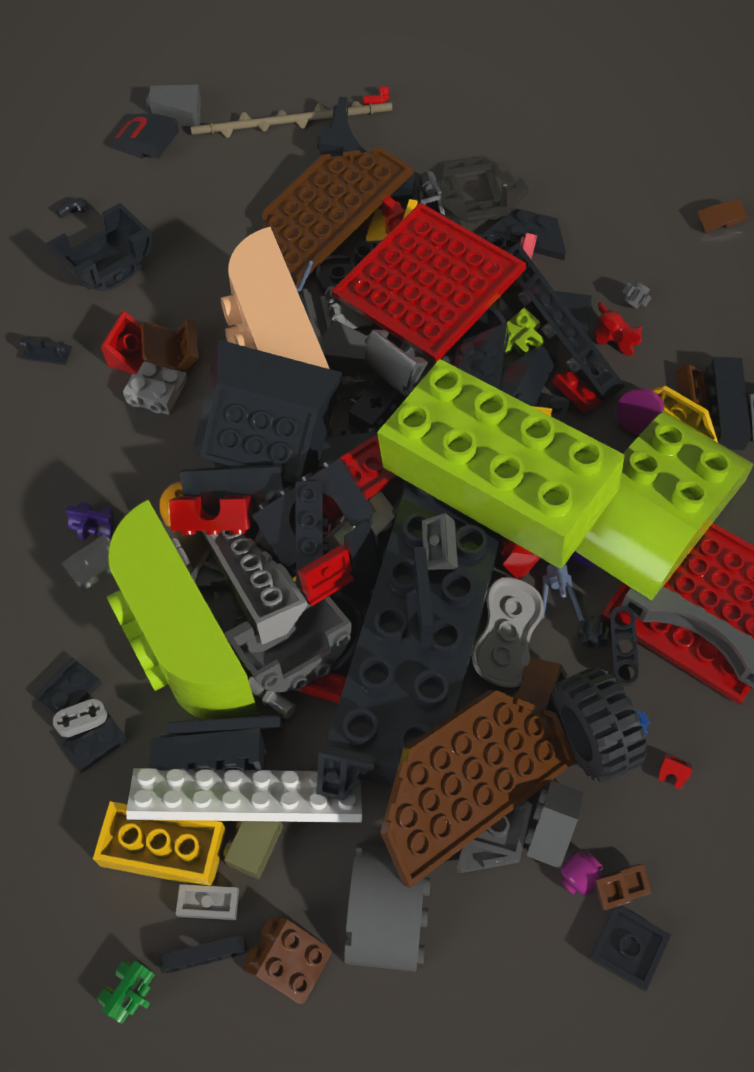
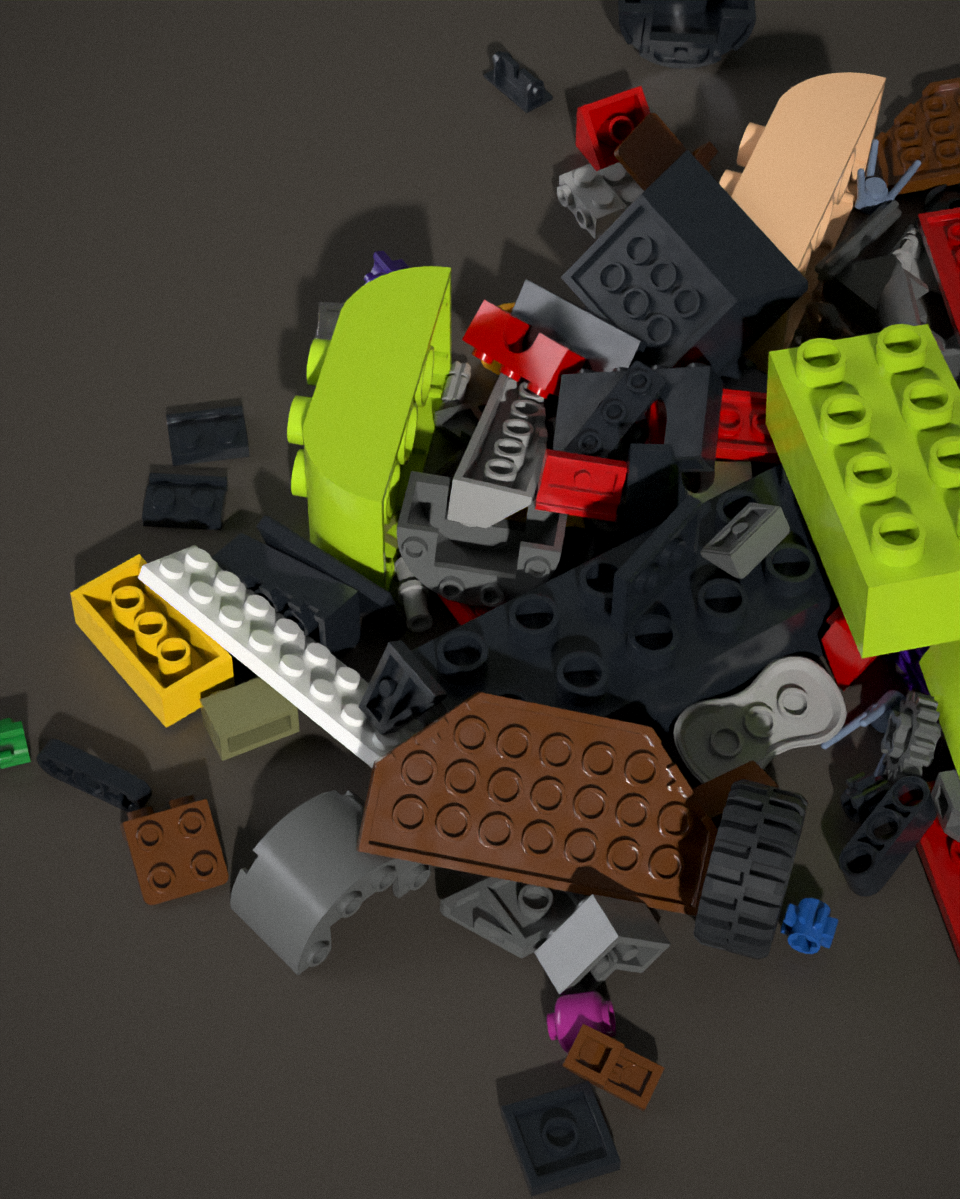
camera: 40 degrees right, 10 degrees down
(80, 718) = (190, 465): light grey beam -> none
(207, 902) = (147, 734): light grey plate -> none
(590, 585) = (911, 737): none -> dark grey gear
(675, 766) = (819, 1012): red tile -> none

